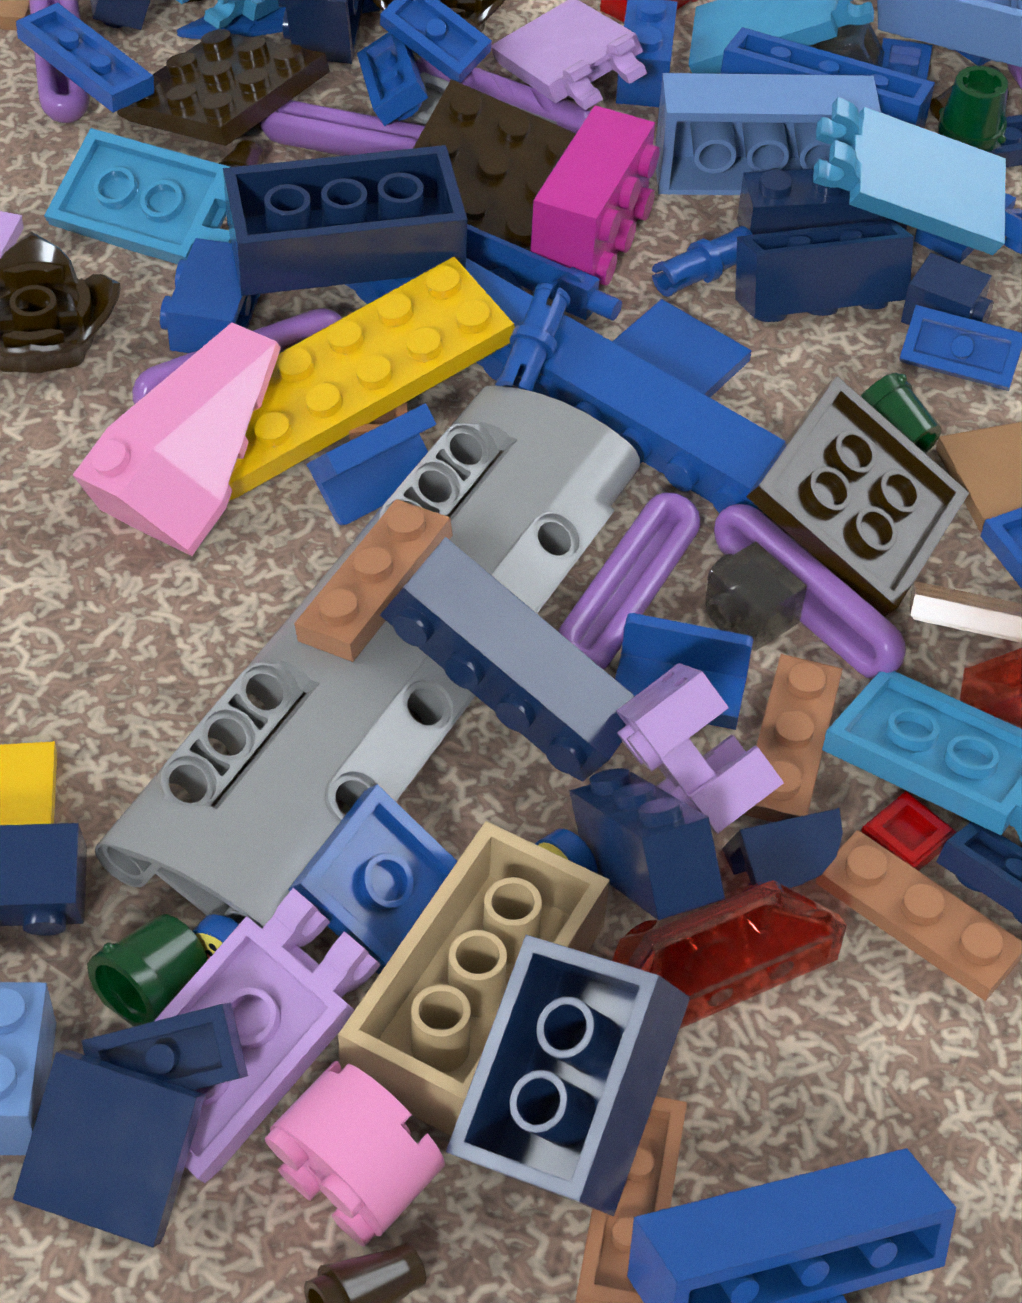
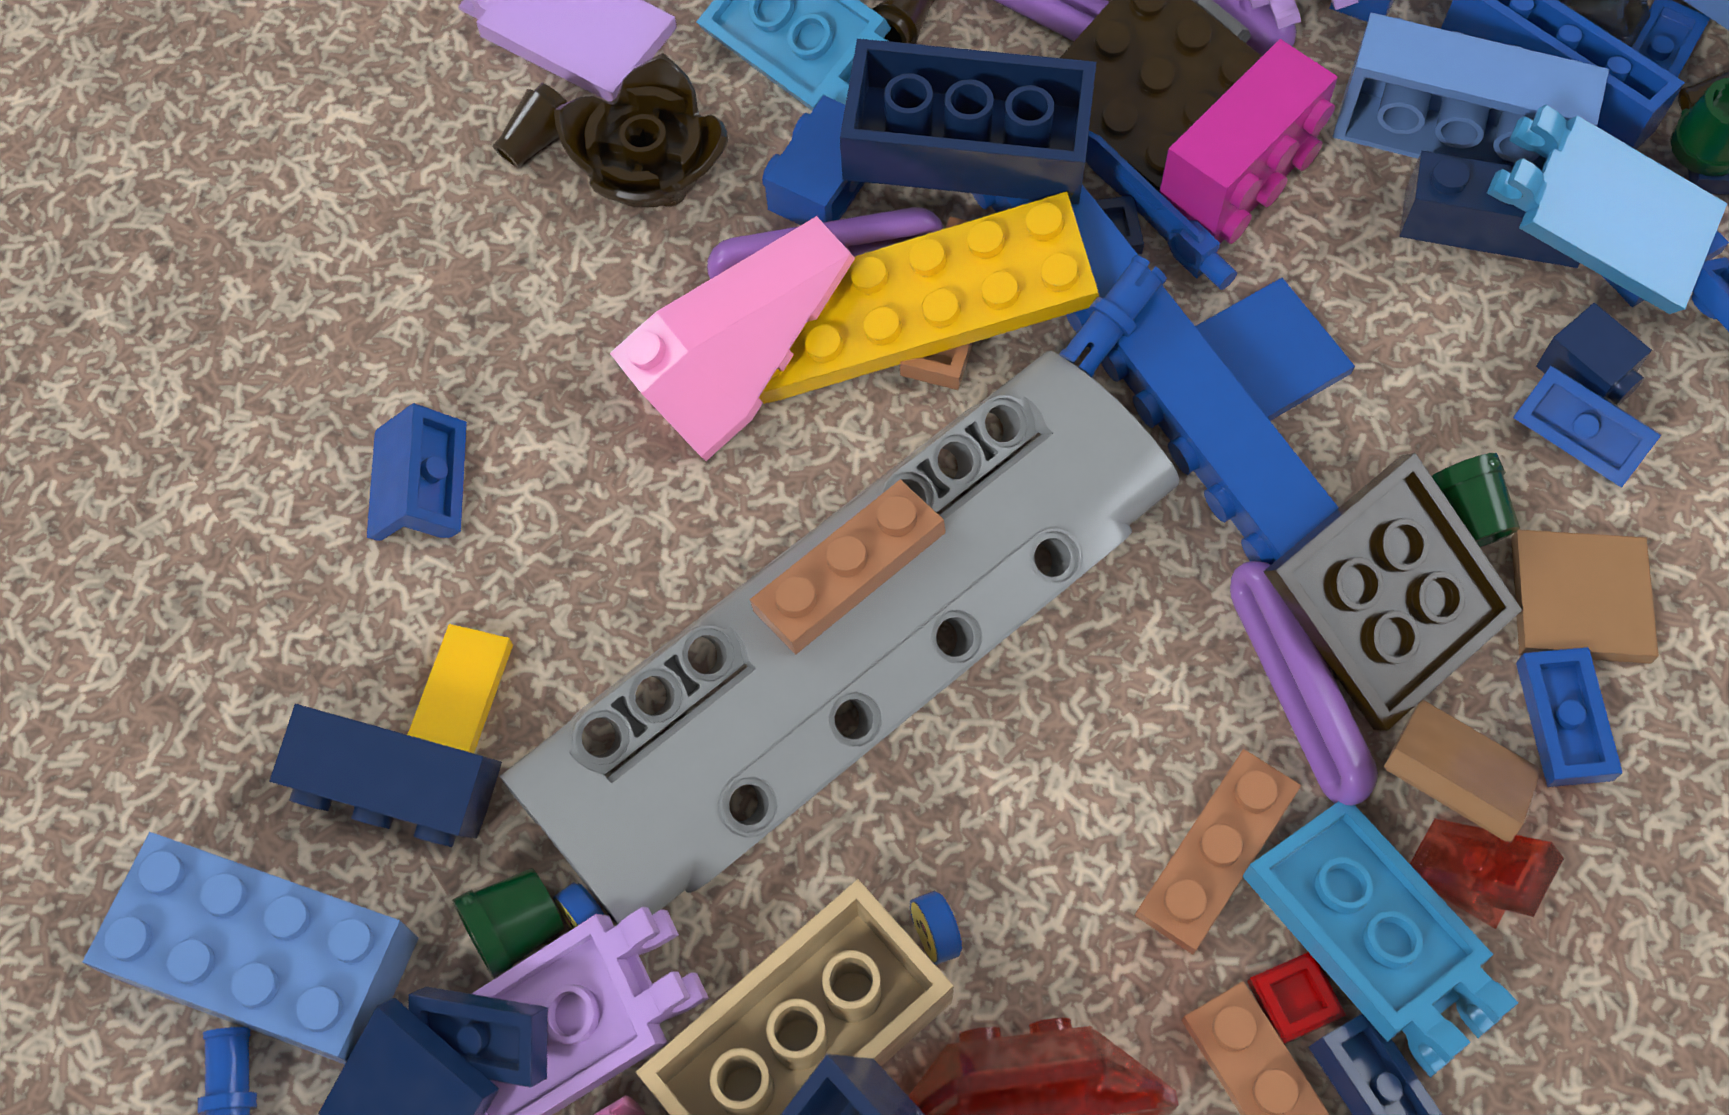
camera: 25 degrees right, 15 degrees up
(372, 466) = (909, 409): blue panel -> none
(375, 874) = (743, 894): blue tile -> none
(510, 660) = (952, 700): brick -> none
(631, 576) = (1116, 620): medium lavender piece -> none
(648, 843) = (1004, 960): dark blue brick -> none
(657, 645) = (1131, 744): blue panel -> none
(658, 733) = (1102, 893): lavender piece -> none
(700, 262) = (1346, 240): blue pin -> none
(754, 595) = (1238, 673): clear smoke brick -> none
(786, 849) = (1158, 989): dark blue brick -> none
(823, 269) = (1469, 289): dark blue brick -> none

